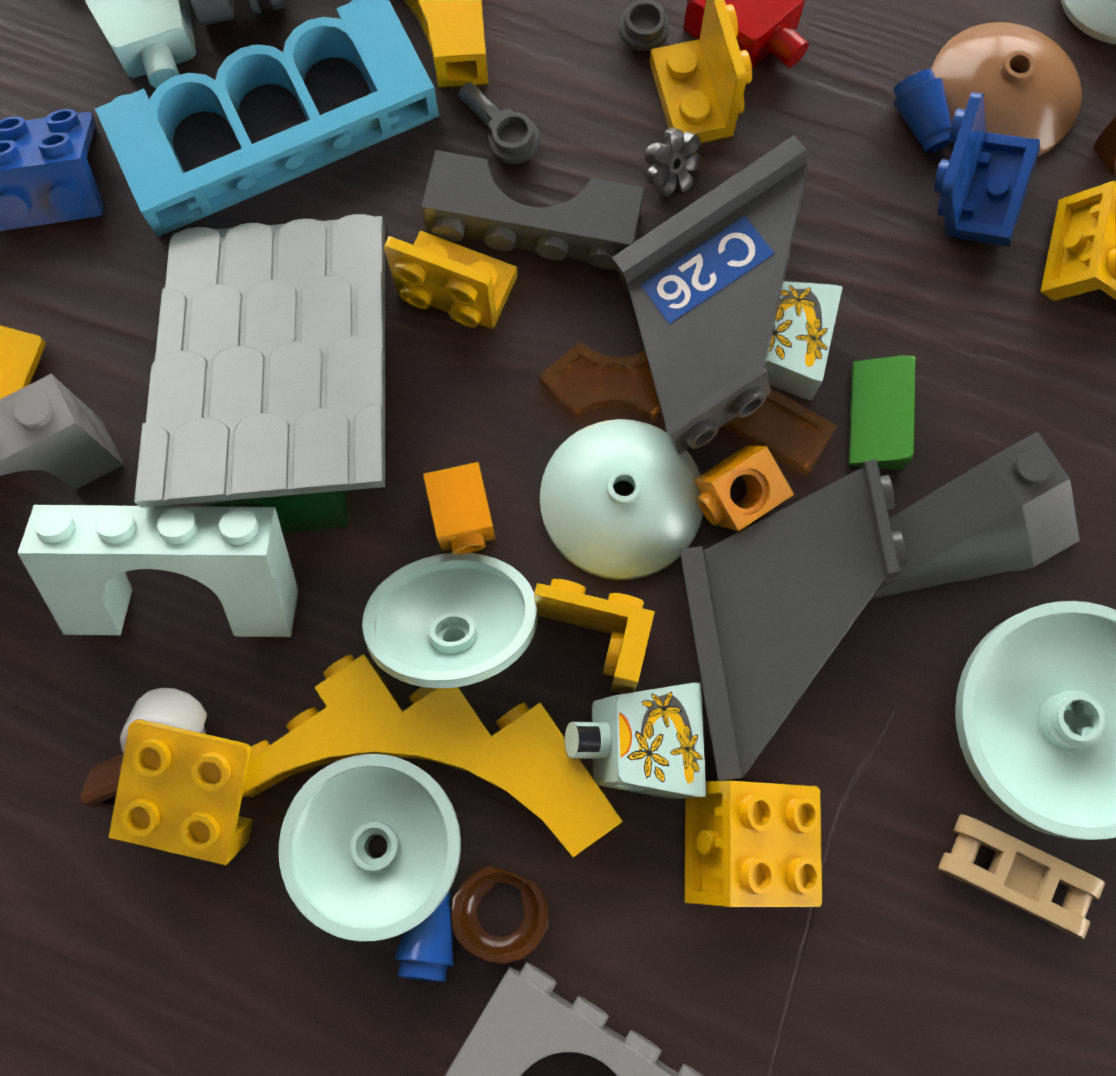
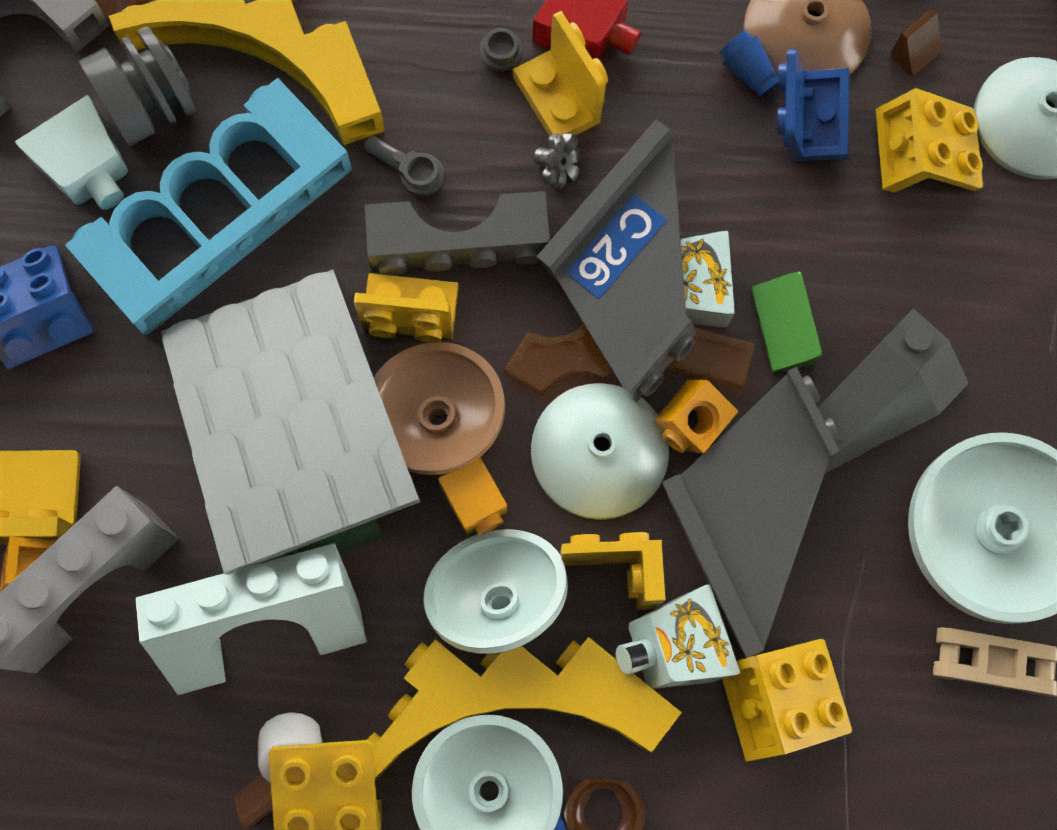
camera: 20 degrees left, 0 degrees up
(451, 369) = (445, 382): none -> medium nougat dish

